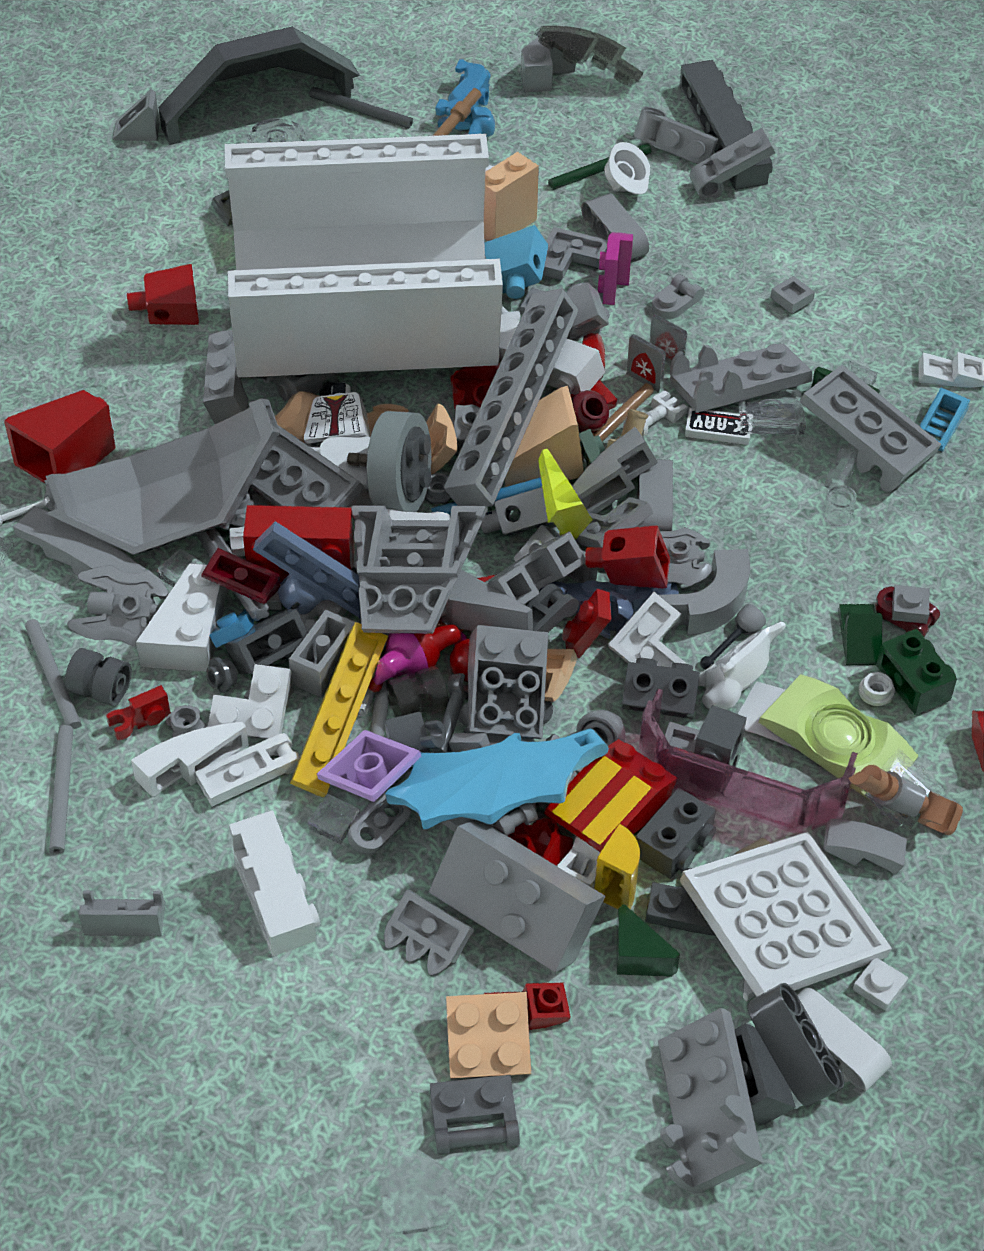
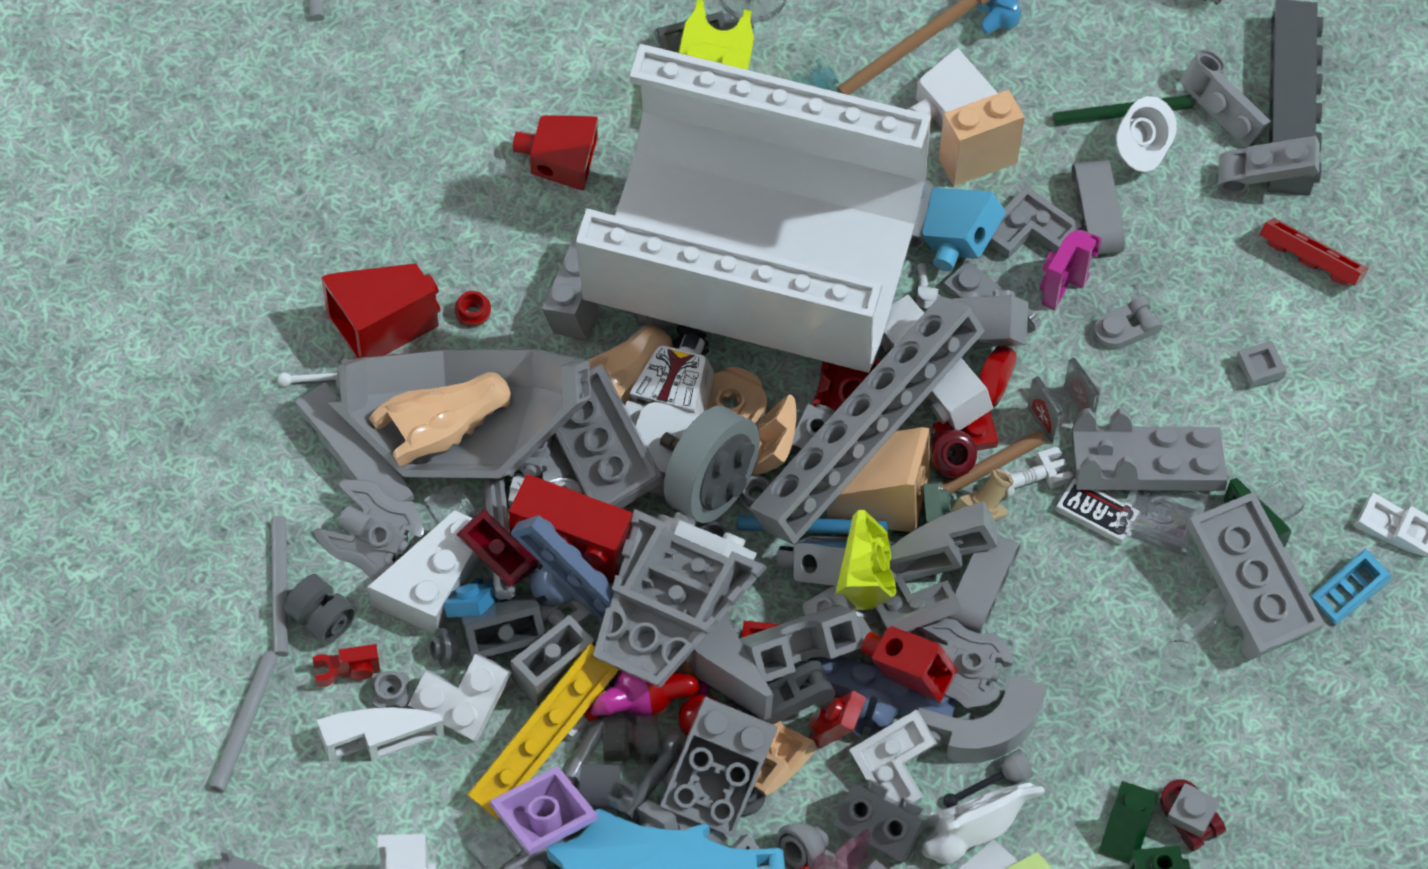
camera: 20 degrees right, 10 degrees up
(140, 425) = (472, 299): none -> red plate
(148, 499) = (441, 416): none -> light nougat animal
(247, 769) = (431, 764): white plate -> none
(792, 215) = (1313, 253): none -> red plate

